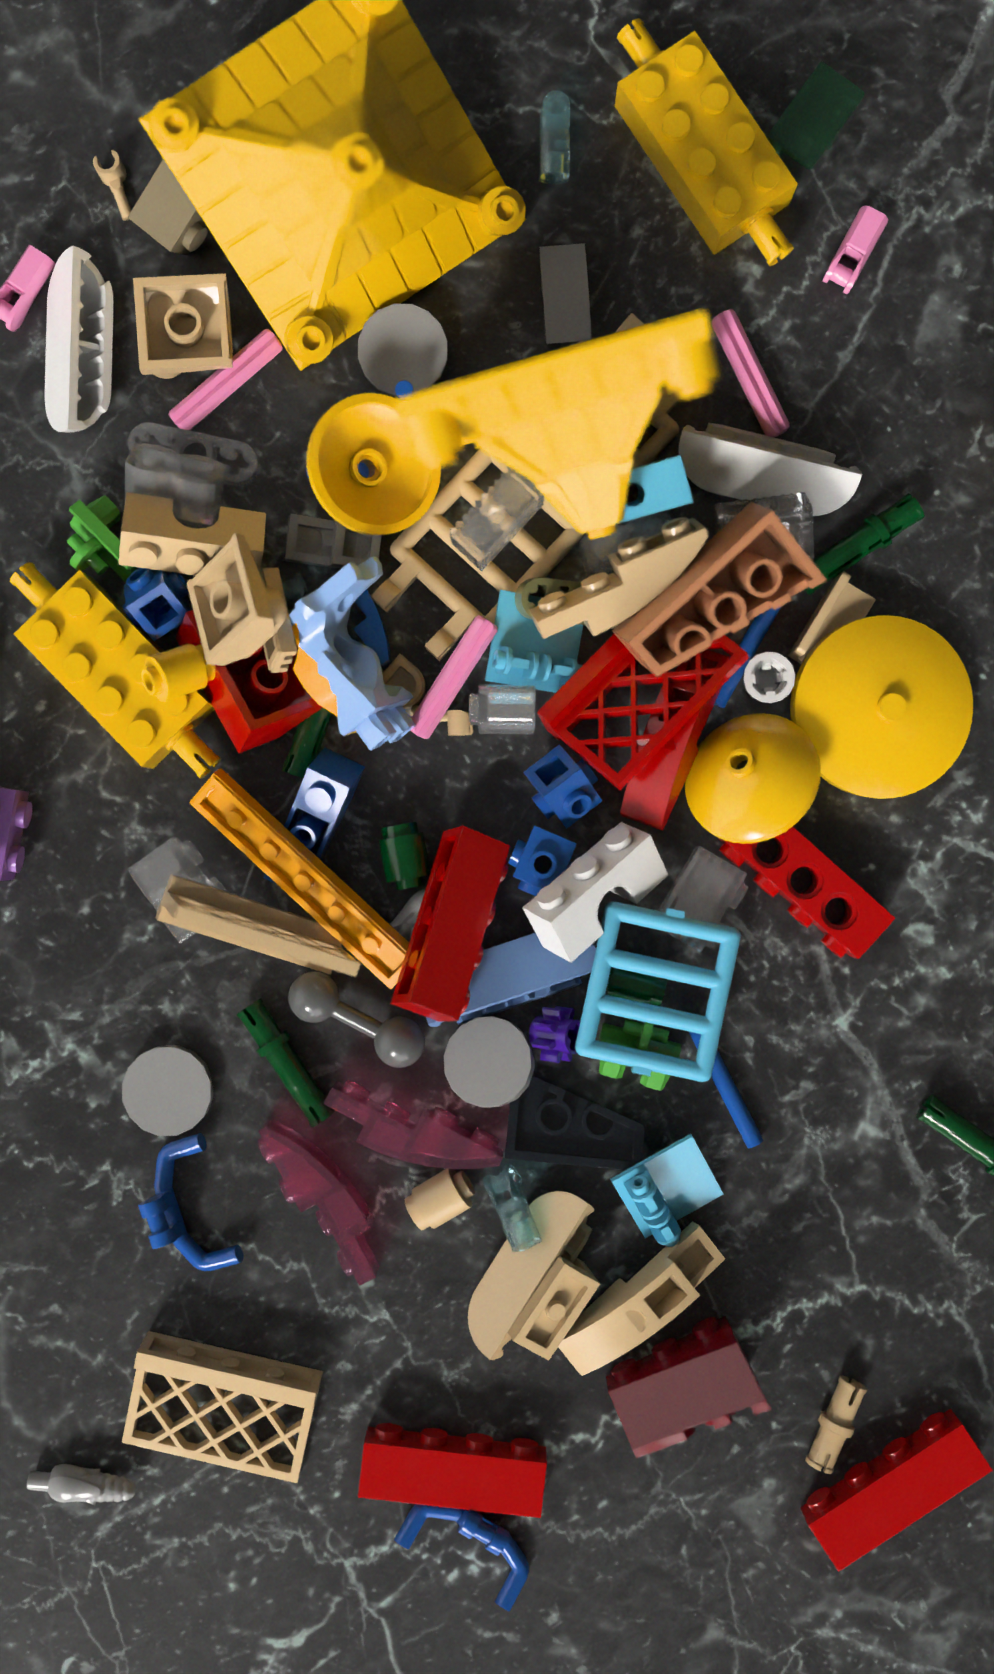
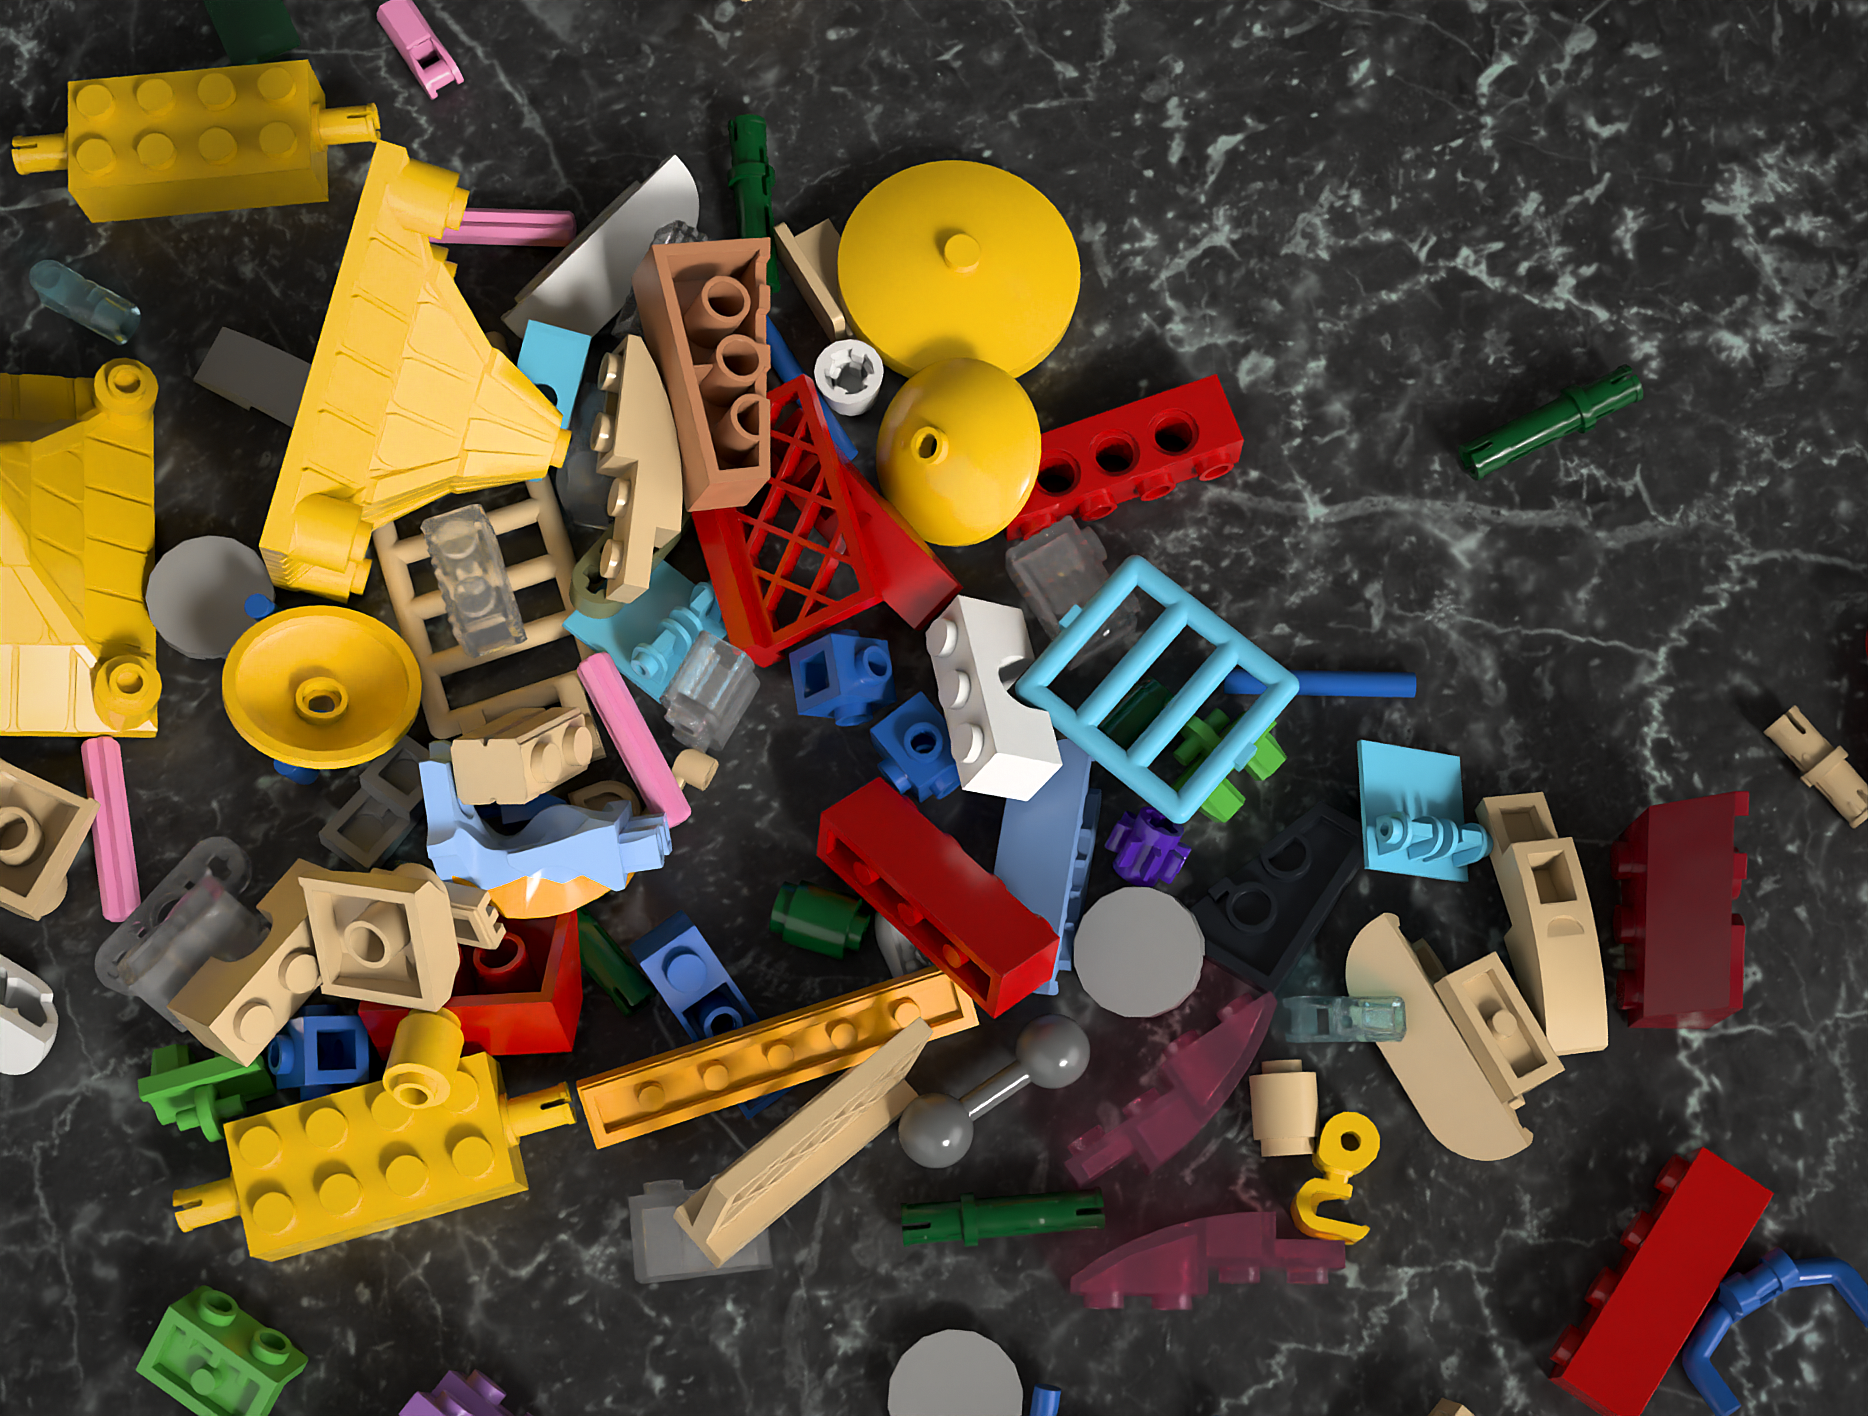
camera: 55 degrees left, 15 degrees down
(396, 618) = (520, 755): none -> tan brick
(435, 1247) = (1342, 1150): none -> yellow leg

